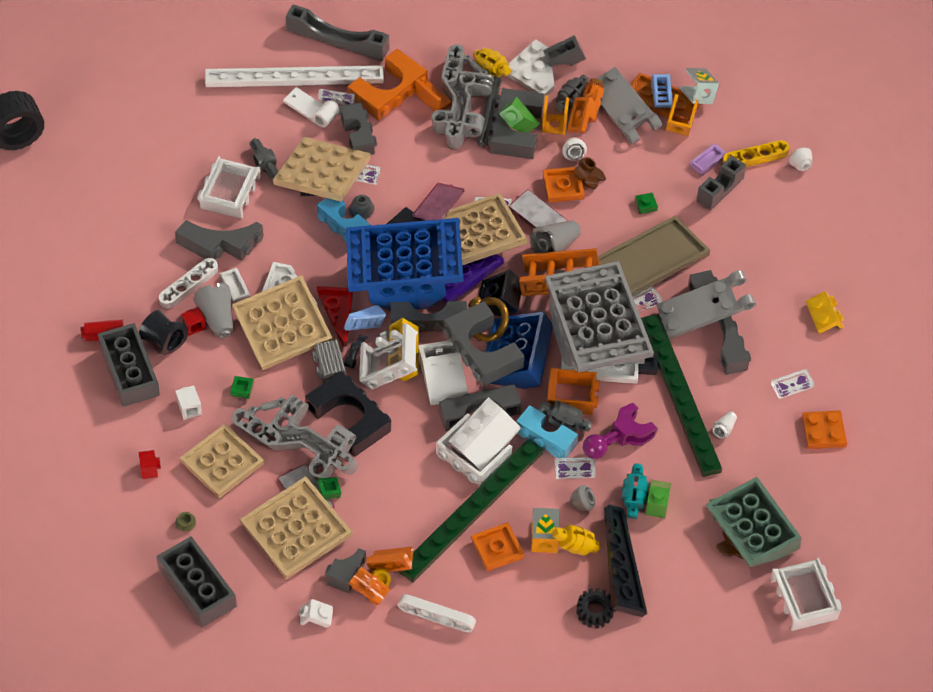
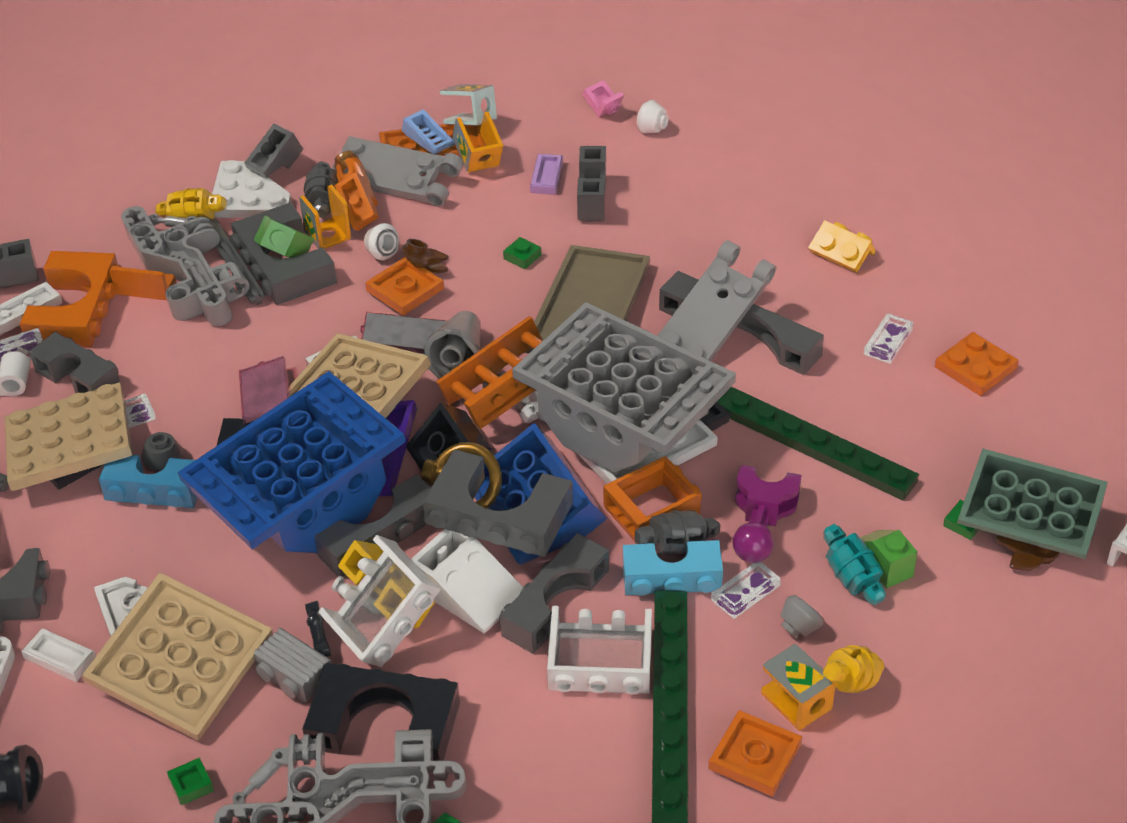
camera: 35 degrees left, 10 degrees down
(193, 320) = (38, 732): red plate -> none
(216, 308) = (59, 697): light grey cone -> none
(337, 304) = (243, 590): red wing -> none
(365, 319) = (297, 577): light blue slope -> none
(484, 434) = (606, 615): white slope -> none
(594, 618) = (955, 758): black tyre -> none
(623, 571) = (983, 695): black wing -> none
(724, 425) = (869, 426): white cone -> none
(758, 158) = (591, 138): yellow beam -> none
(786, 127) = (602, 99): none -> bright pink bracket

